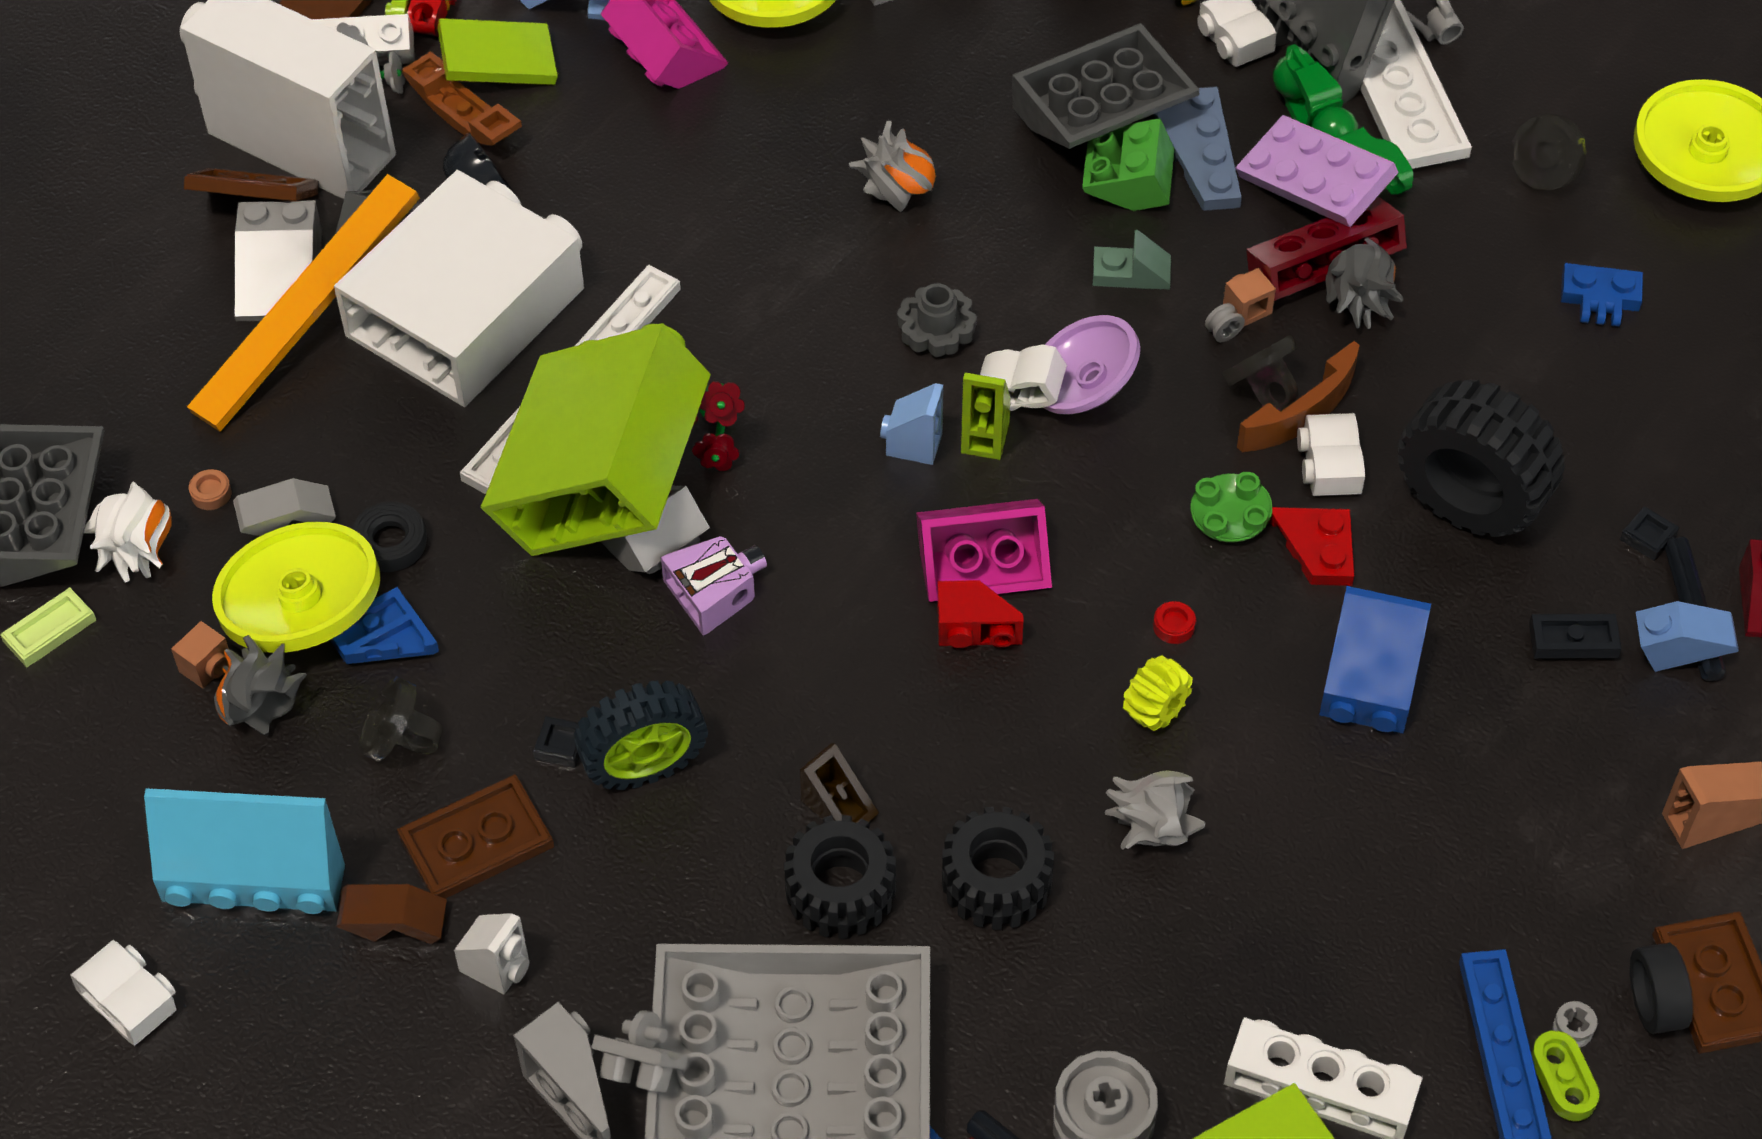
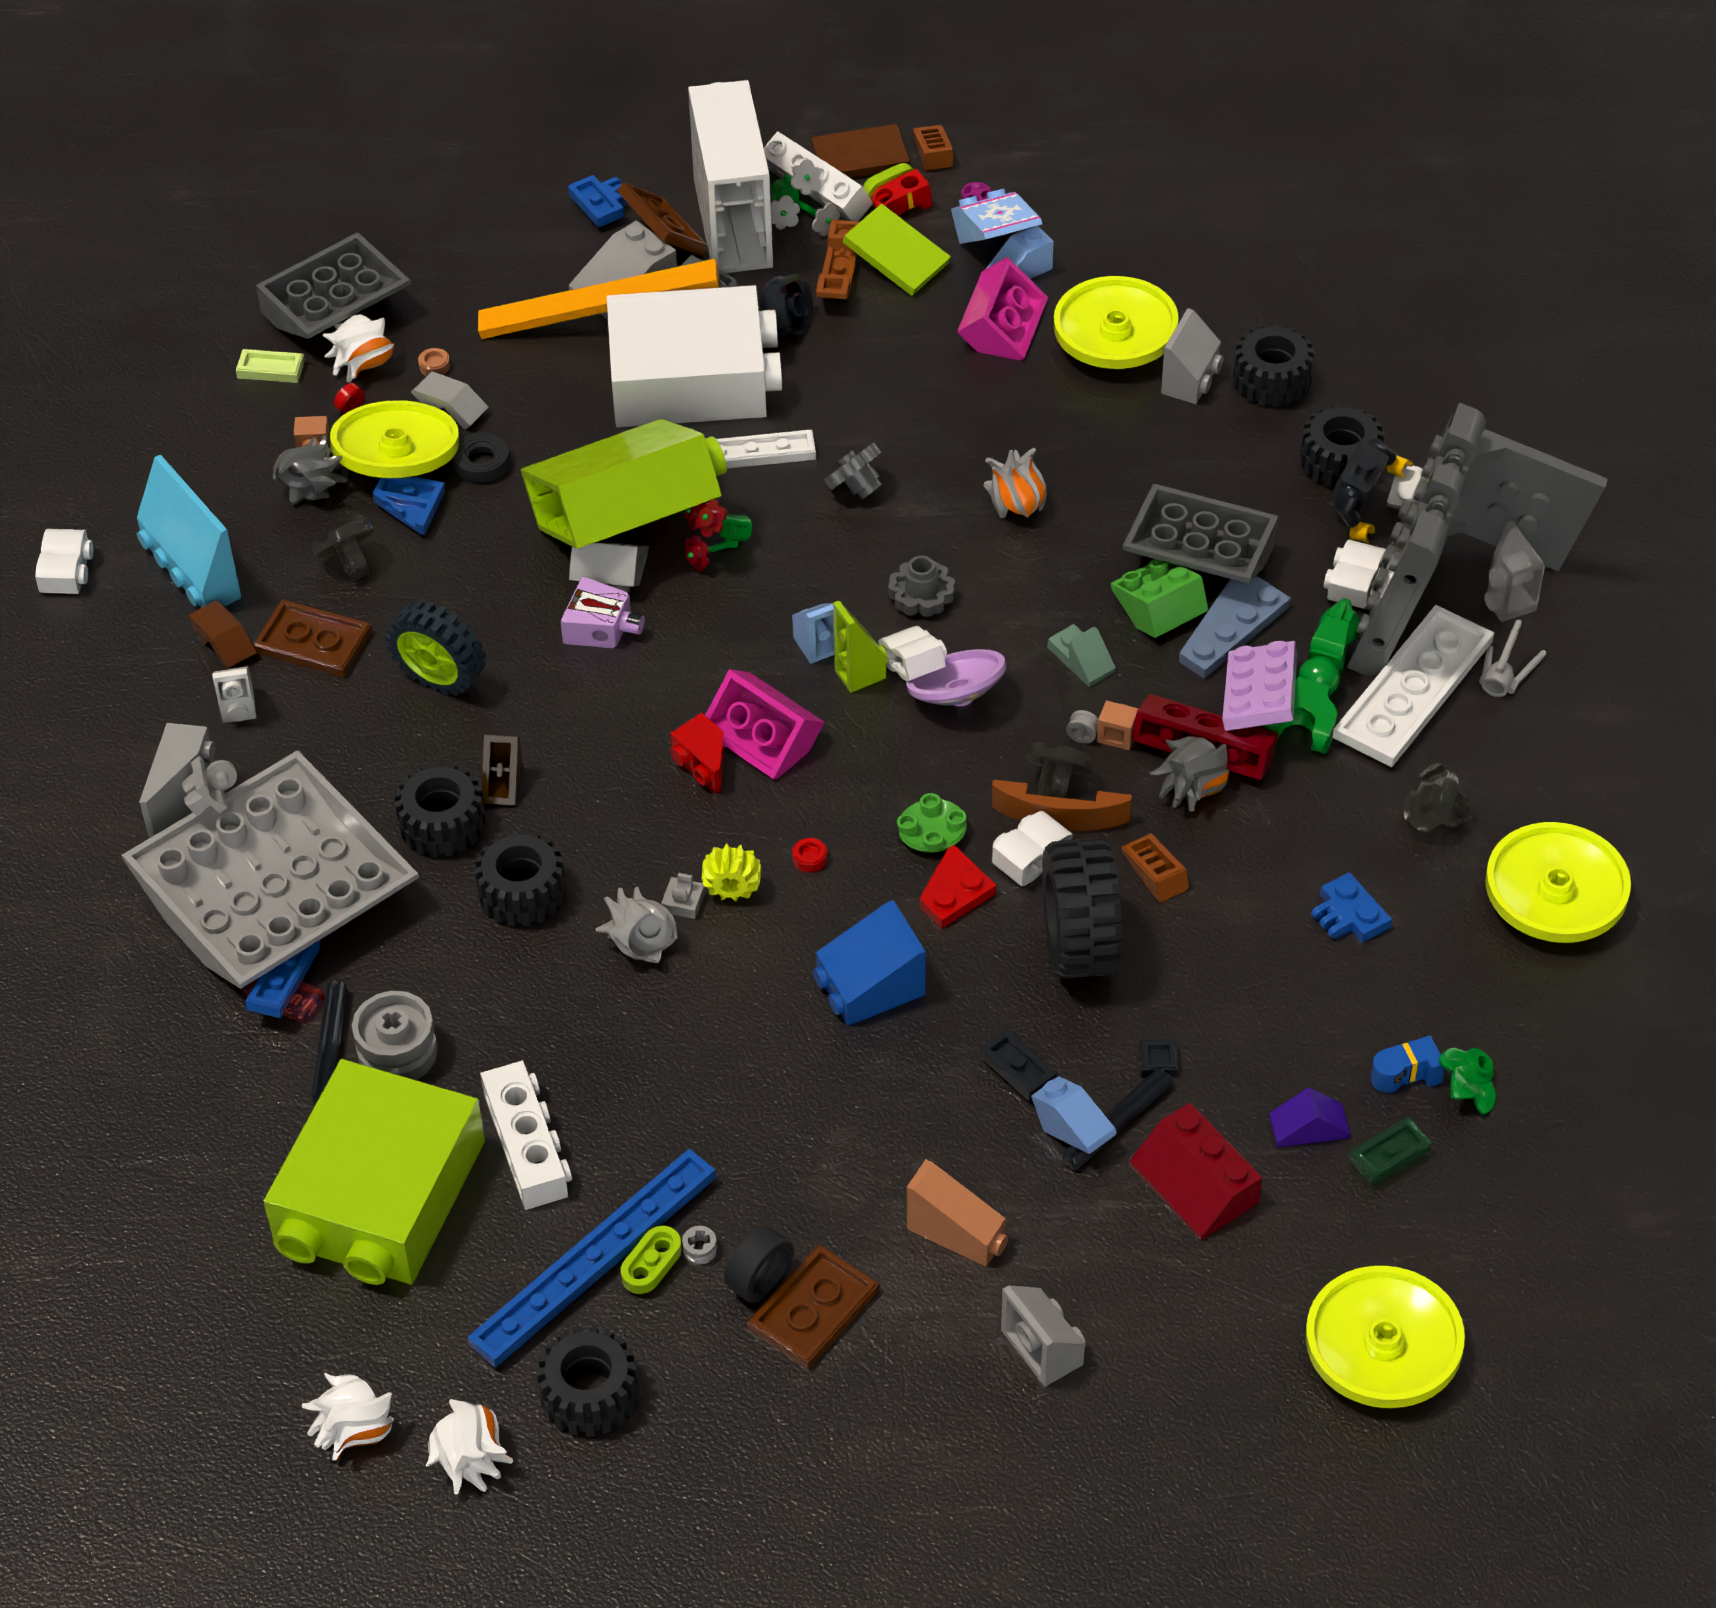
camera: 50 degrees right, 5 degrees down
(154, 215) = (598, 200): none -> blue hinge
(185, 589) = (349, 398): none -> red tile
(748, 265) = (857, 472): none -> dark grey plant
(1133, 754) = (683, 896): none -> light grey tile
(1428, 372) = (1159, 869): none -> dark orange slope

